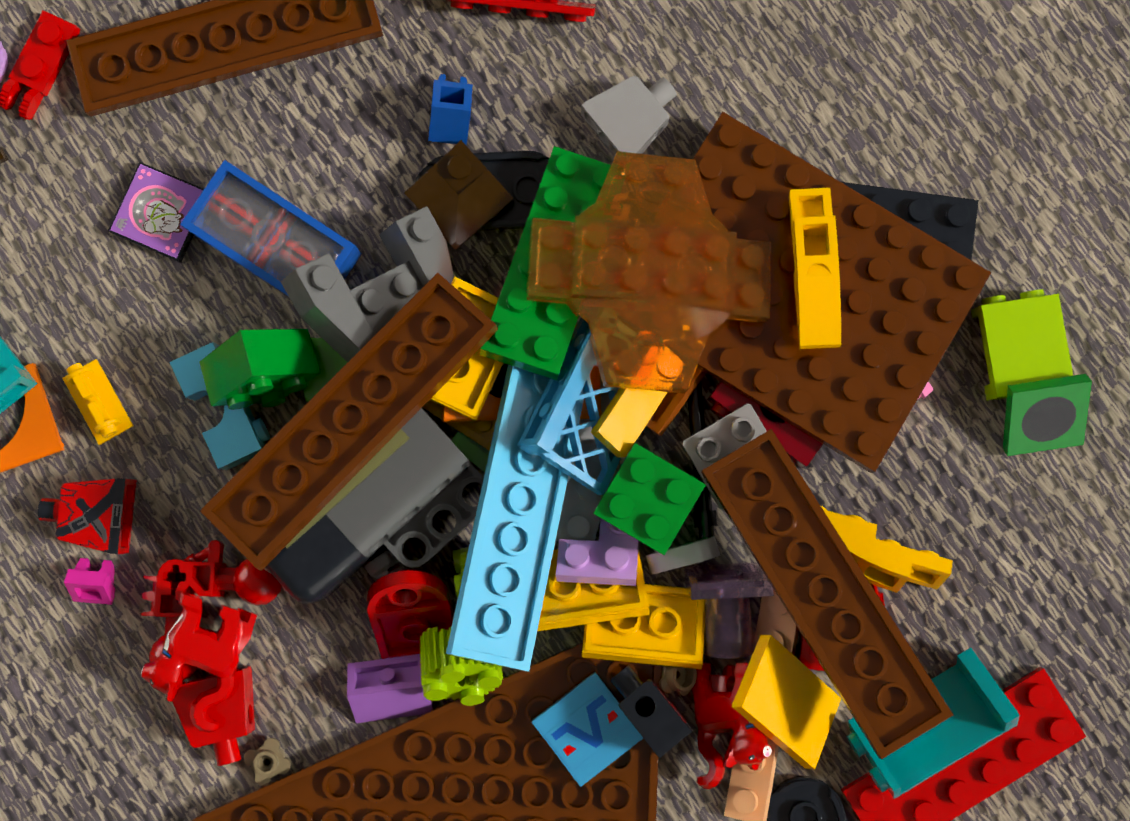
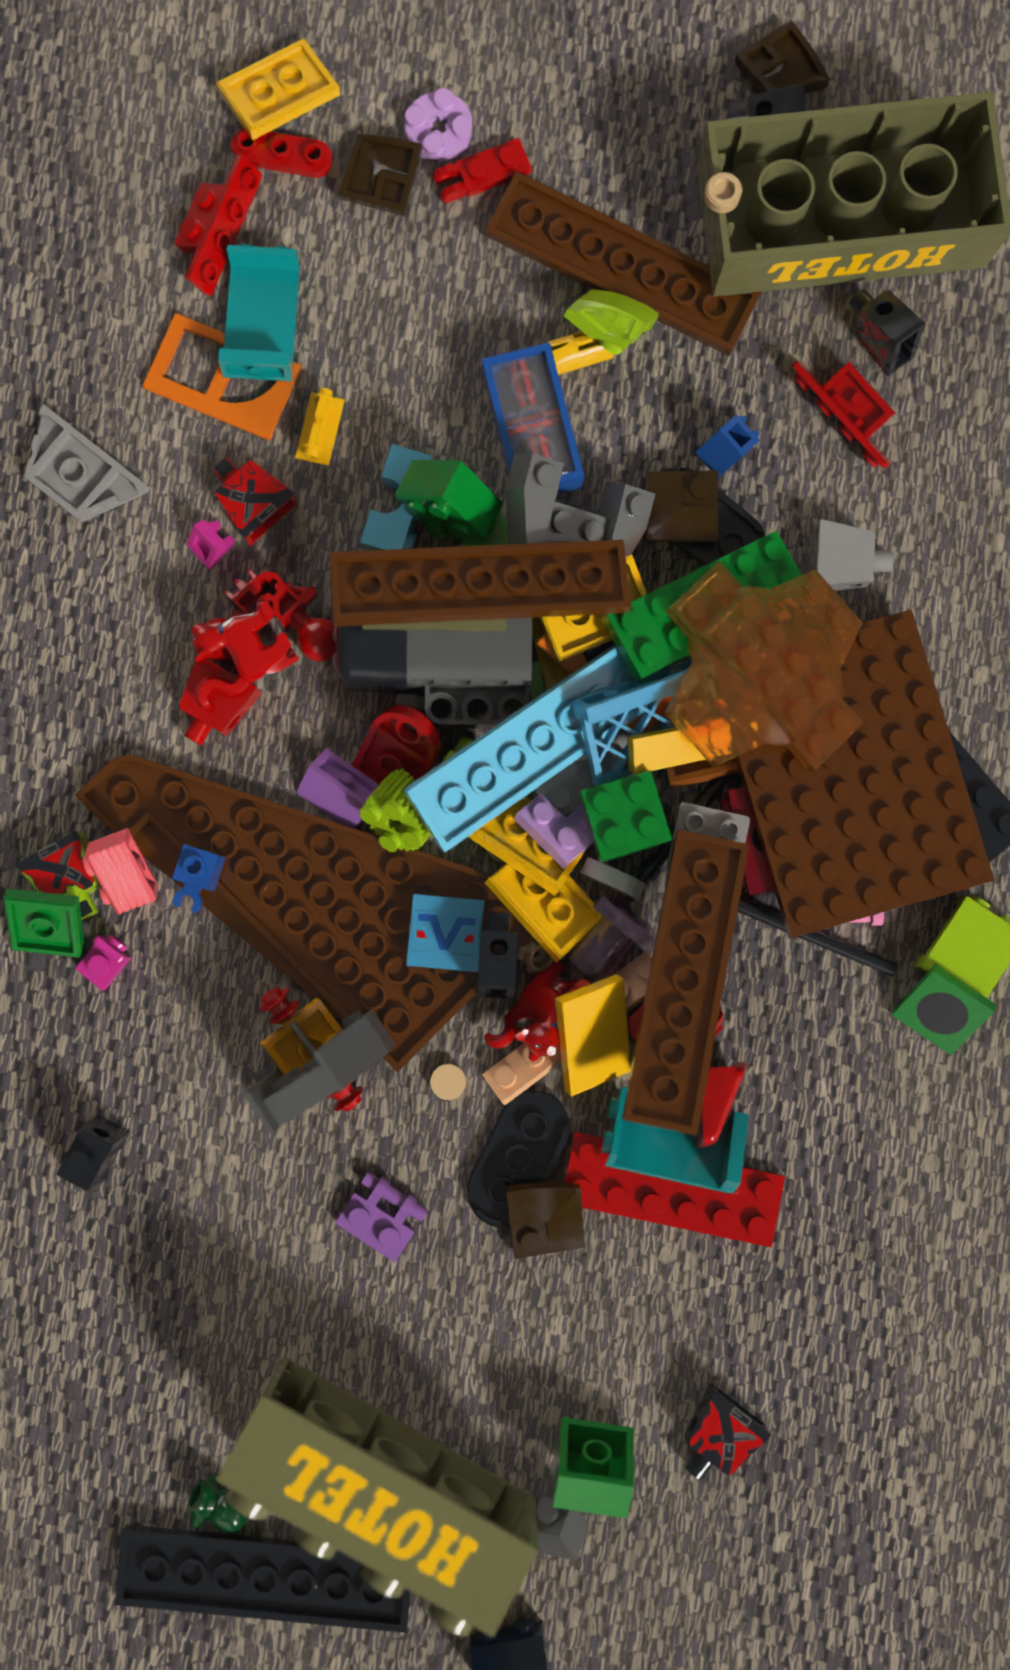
camera: 40 degrees right, 0 degrees up
(154, 210) = (469, 337): tile -> none
(255, 141) = (577, 352): none -> yellow arm
(257, 93) = (611, 318): none -> lime slope
(271, 750) = (223, 771): dark tan plate -> none
(815, 268) = (876, 765): yellow slope -> none
(885, 560) = (745, 1007): yellow slope -> none
(898, 446) = (820, 939): none -> black bar
(938, 661) = (718, 1098): none -> red piece

